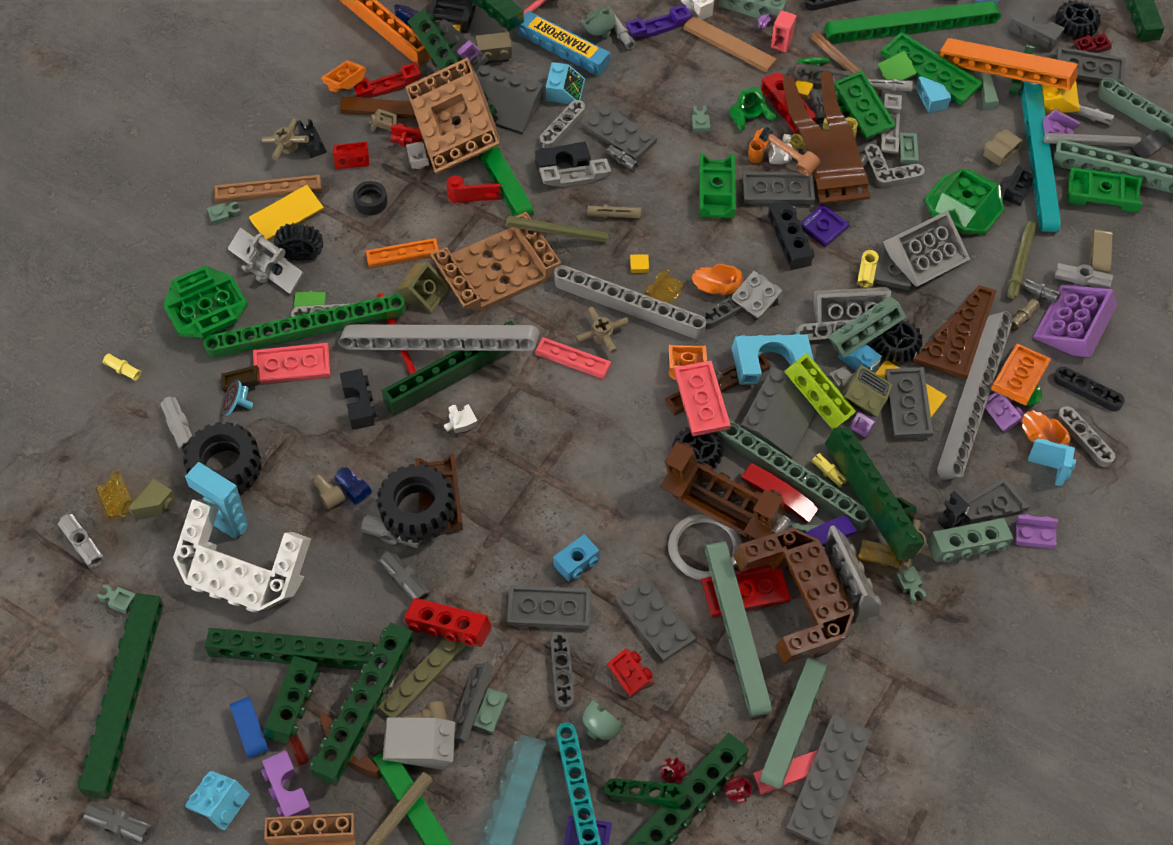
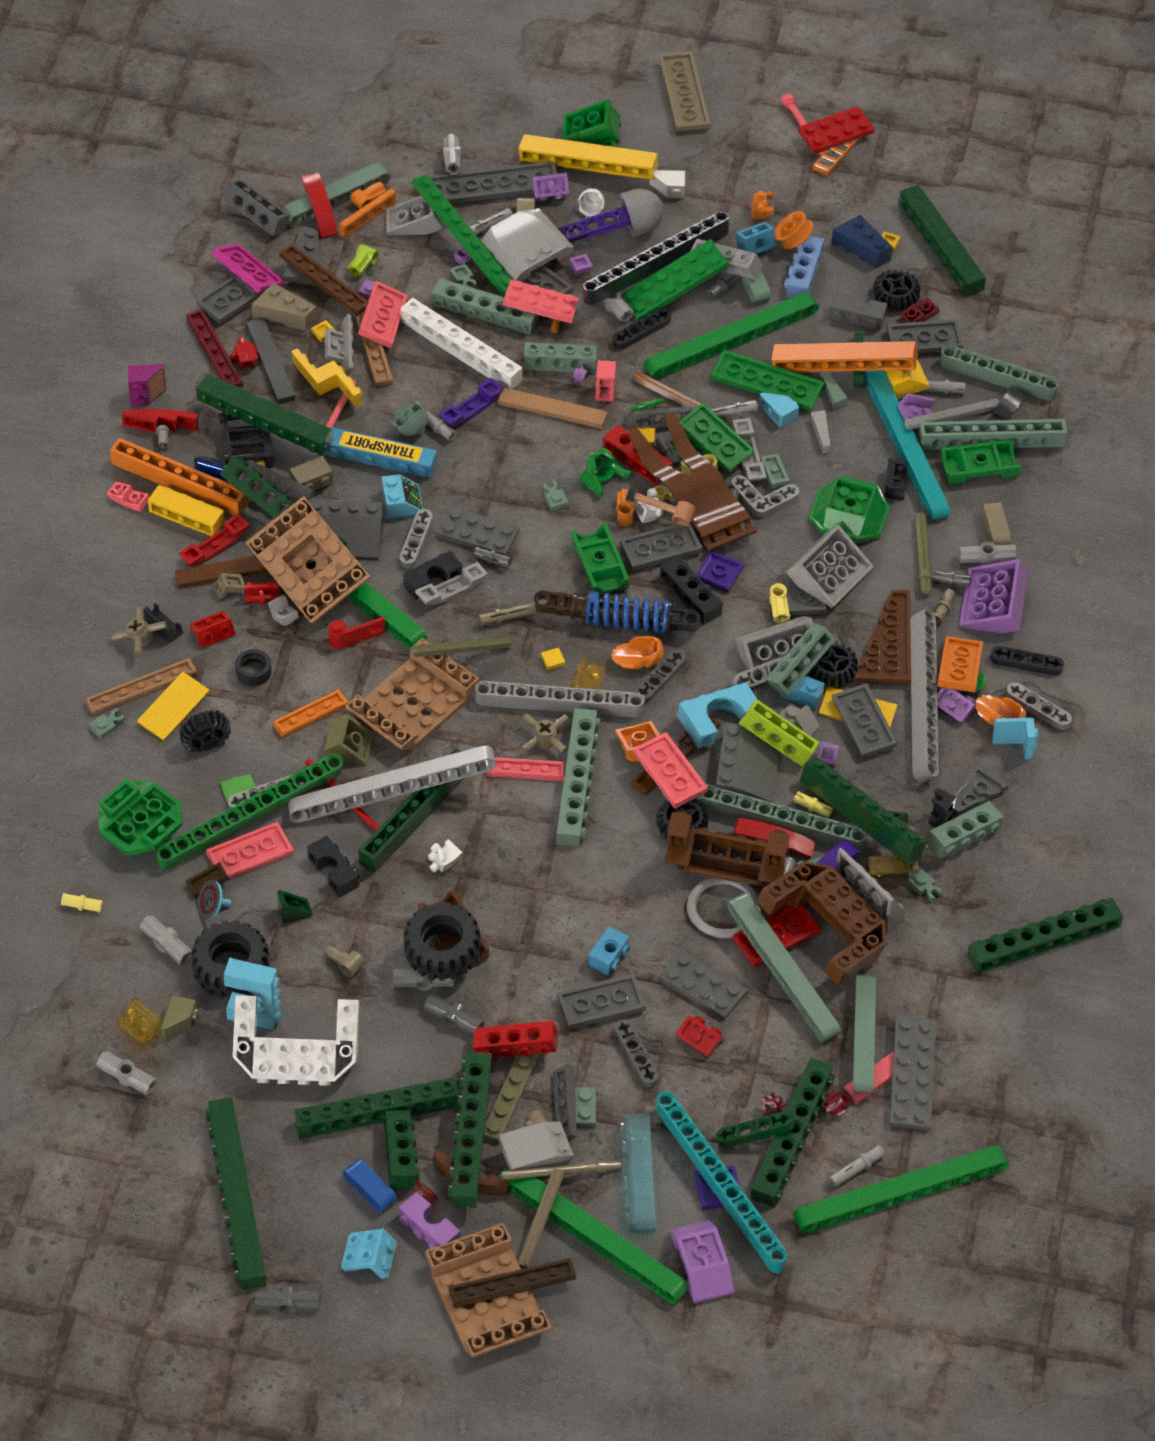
camera: 20 degrees left, 5 degrees down
(117, 600) = (190, 1114): sand green plate -> none
(263, 266) = (176, 765): light grey piece -> none
(303, 426) = (292, 907): none -> dark green slope
(333, 25) = (127, 497): none -> coral slope
(344, 76) = (170, 548): orange slope -> none
(355, 489) = (370, 949): clear blue piece -> none
(375, 48) = (186, 510): none -> yellow brick
(468, 51) = (294, 488): medium lavender plate -> none
(477, 780) = (598, 1166): none -> dark tan bar
(582, 428) = (577, 777): none -> sand green brick
(600, 722) = (692, 1083): sand green cylinder -> none
(713, 237) = (596, 610): none -> piece
(757, 294) = (682, 657): light grey bracket -> none
(867, 391) = (823, 720): olive slope -> none
(897, 67) = (734, 389): bright green piece -> none
(965, 120) = (820, 427): none -> light grey piece
(1002, 147) = (866, 445): dark tan brick -> none
(1006, 680) = (1037, 942): none -> dark green brick
(1036, 531) = (1021, 805): medium lavender bracket -> none

